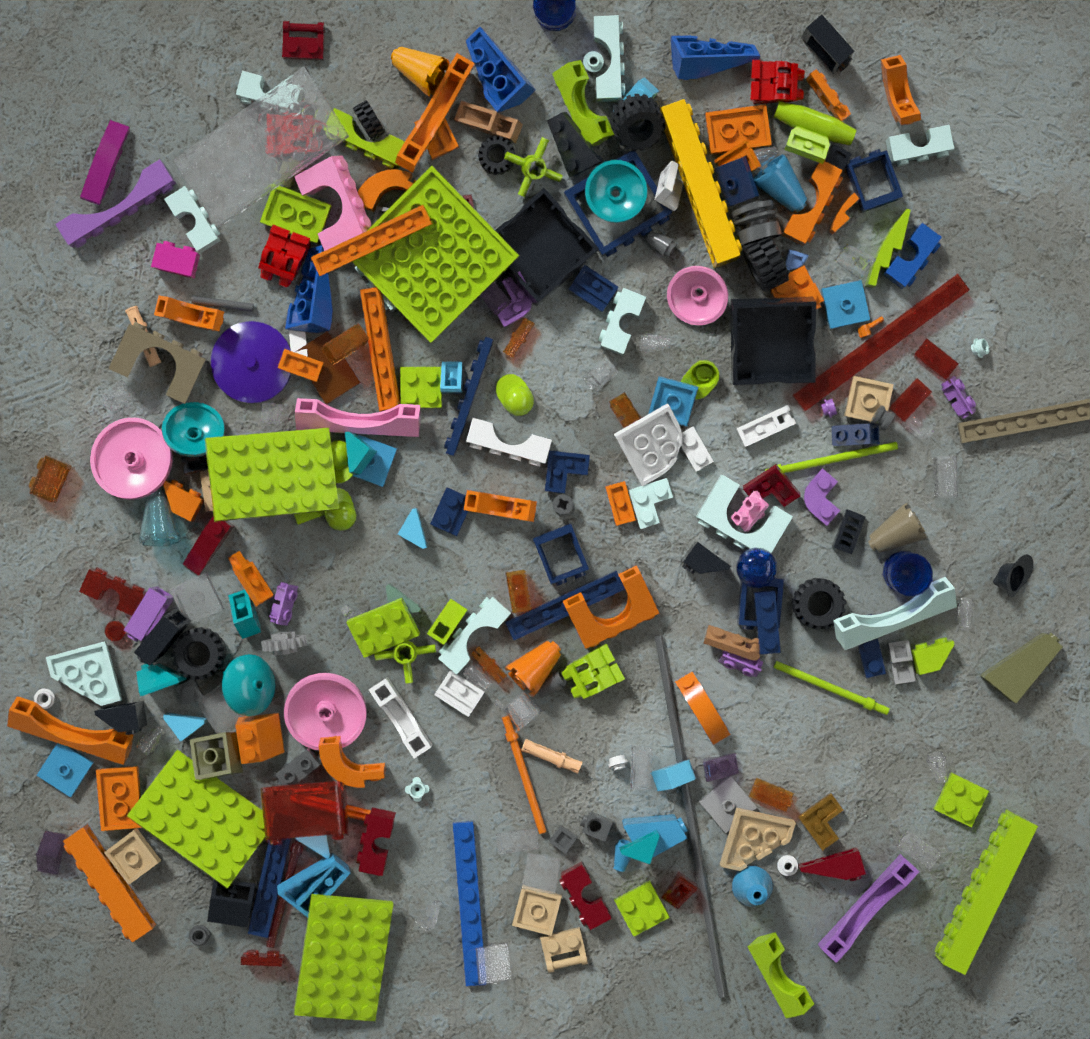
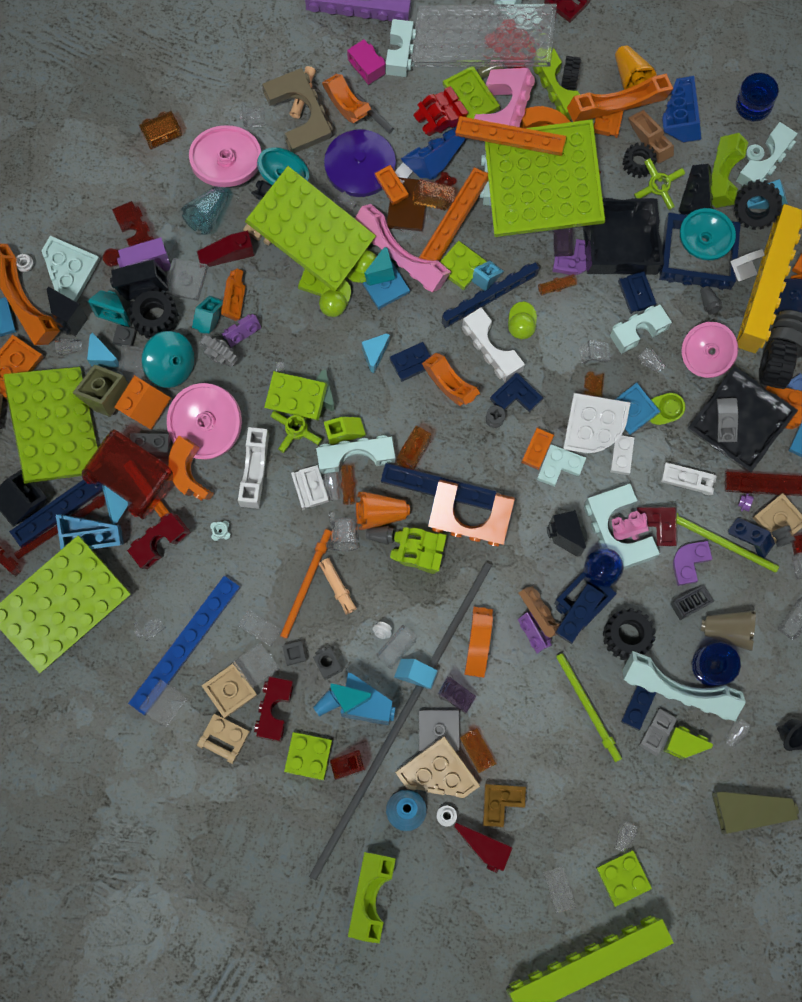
camera: 45 degrees right, 15 degrees down
(181, 501) = (234, 211): orange slope -> none
(343, 324) = (445, 177): none -> clear red plate
(561, 579) = (469, 431): dark blue window -> none
(760, 350) = (727, 420): none -> light grey slope
(848, 928) = (484, 901): medium lavender arch -> none

